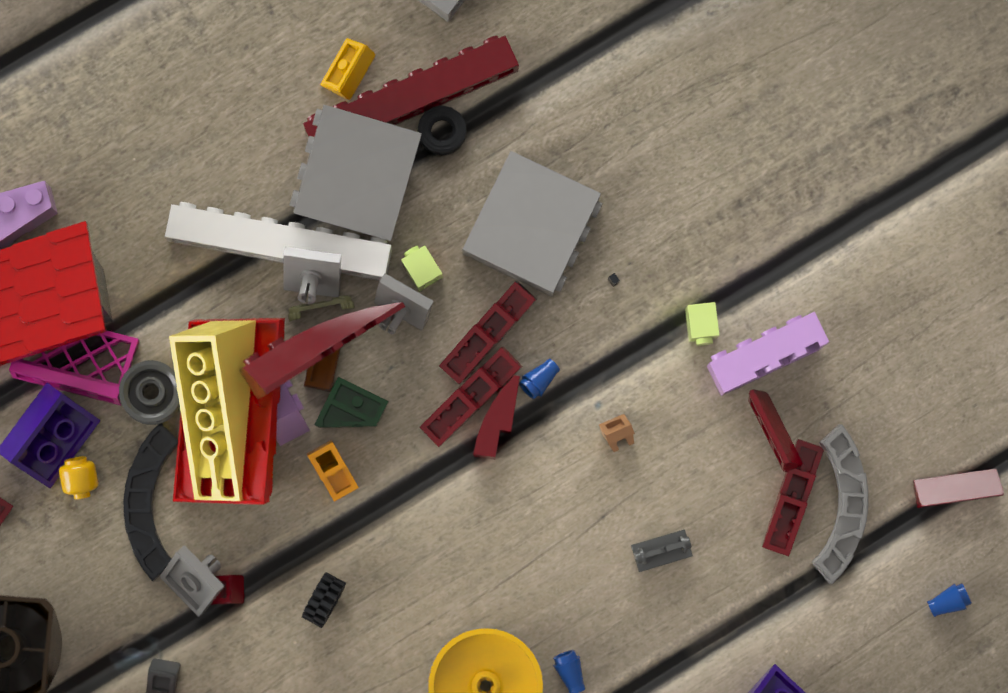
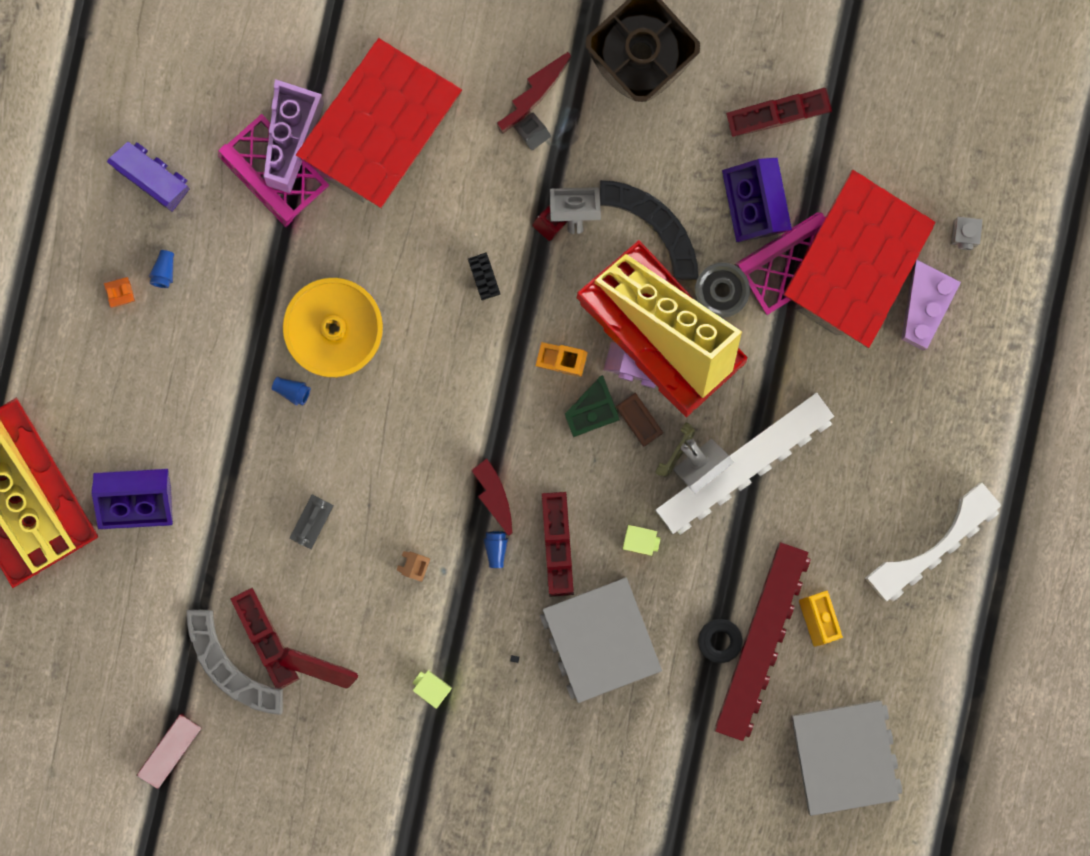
camera: 135 degrees right, 5 degrees up
(78, 477) = (711, 194): yellow head -> none
(145, 27) = (972, 510): none -> white arch
(307, 348) = (650, 404): dark red wedge -> none
(355, 172) = (742, 555): light grey brick -> none
(417, 305) = (627, 503): light grey tile -> none
(471, 396) = (526, 493): dark red slope -> none
(767, 354) = (371, 710): lavender wedge -> none
(950, 600) = (103, 676): blue cone -> none

